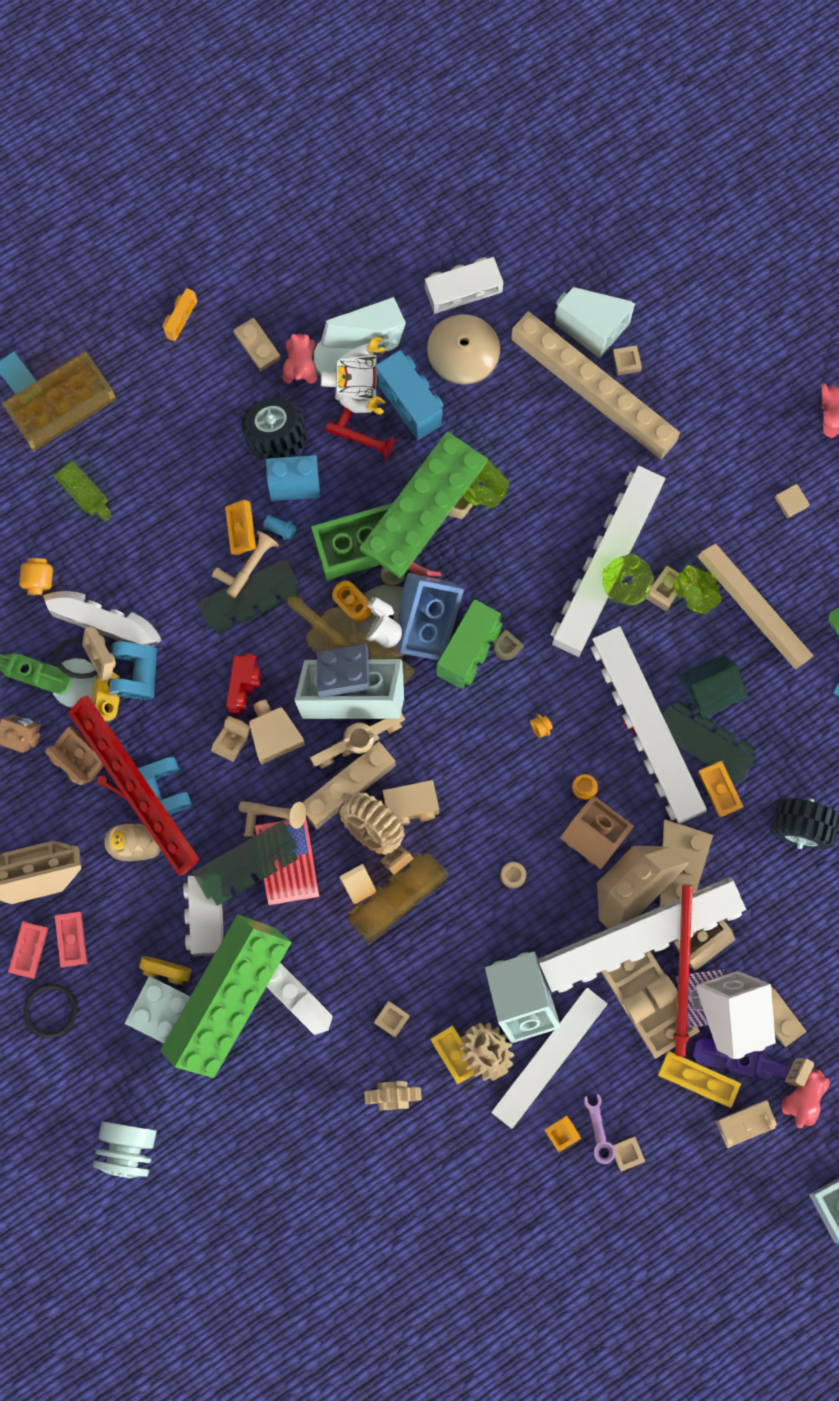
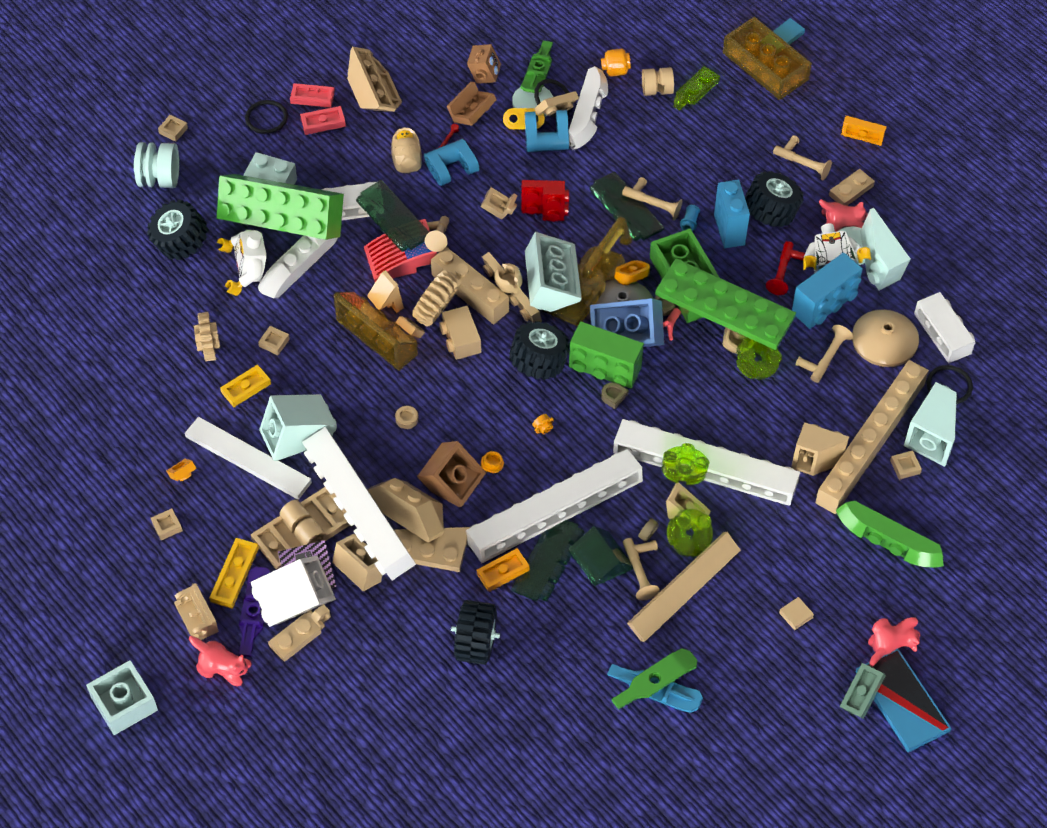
camera: 85 degrees right, 20 degrees down
(52, 1129) = (173, 128): none -> tan tile
(74, 532) = (657, 81): none -> tan wheel
(133, 786) = (442, 140): red plate -> none
(154, 967) = (304, 174): yellow plate -> none
(198, 406) = (787, 153): none -> tan piece
(228, 1126) = (177, 229): none -> black wheel
(240, 527) = (691, 189): light orange plate -> none
(273, 732) = (508, 231): tan torso -> none
(276, 1040) = (249, 256): none -> white torso
(343, 670) = (565, 260): sand blue plate -> none
(384, 629) = (608, 287): white piece -> none
(453, 716) = (539, 350): none -> black wheel
(486, 1051) = (244, 395): tan gear -> none
(499, 423) = (841, 335): none -> tan piece
(533, 276) = (954, 368): none -> black piece
(600, 1138) = (166, 500): lavender brick -> none
(612, 443) = (818, 449): none -> tan slope
(681, 1035) = (270, 547): red bar -> none
(686, 632) = (648, 530): none -> dark tan tile
(707, 653) = (646, 590): none -> tan piece
(733, 371) = (890, 535): none -> bright green brick
(799, 1072) = (240, 649): tan tile -> none

